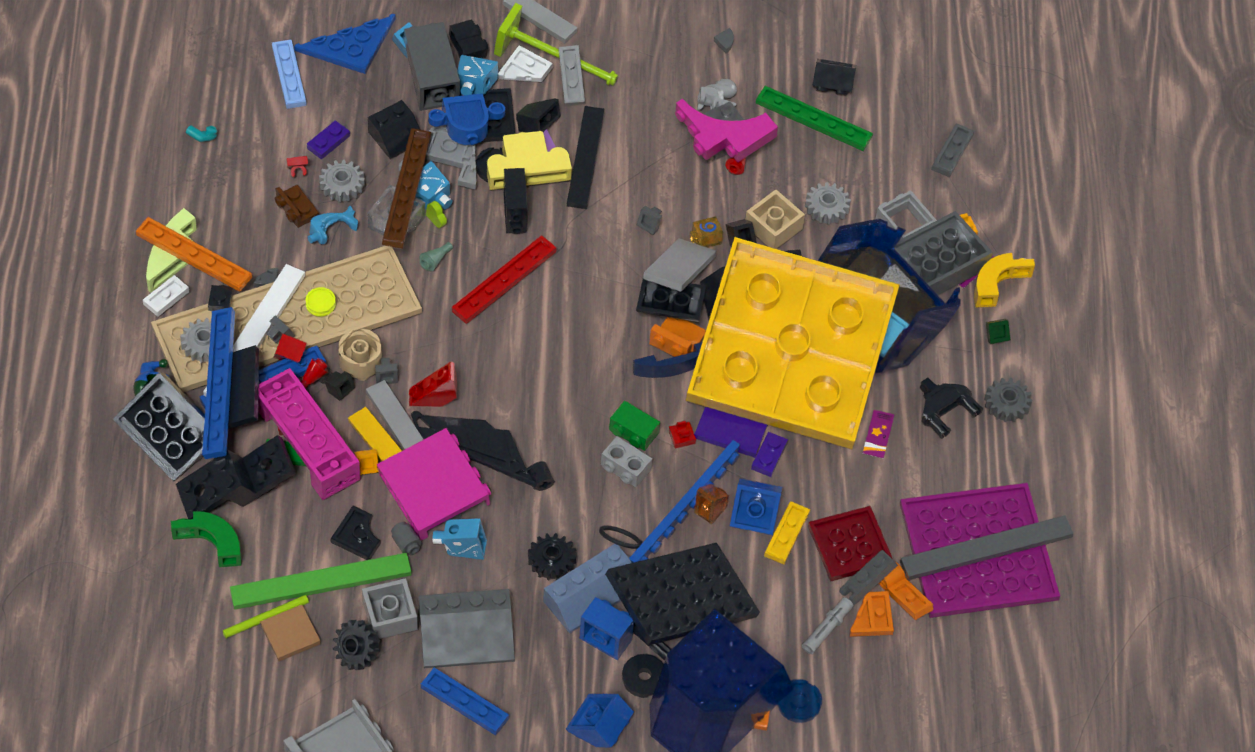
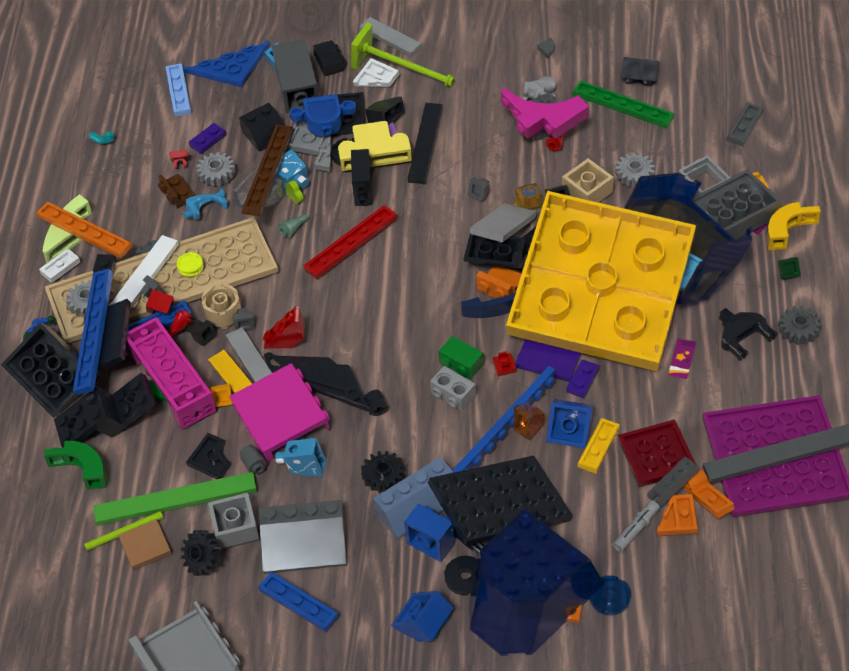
camera: 10 degrees right, 5 degrees down
(476, 74) = (334, 81): dark azure torso -> none
(571, 75) = (414, 79): light grey tile -> none
(617, 542) = (435, 445): black piece -> none

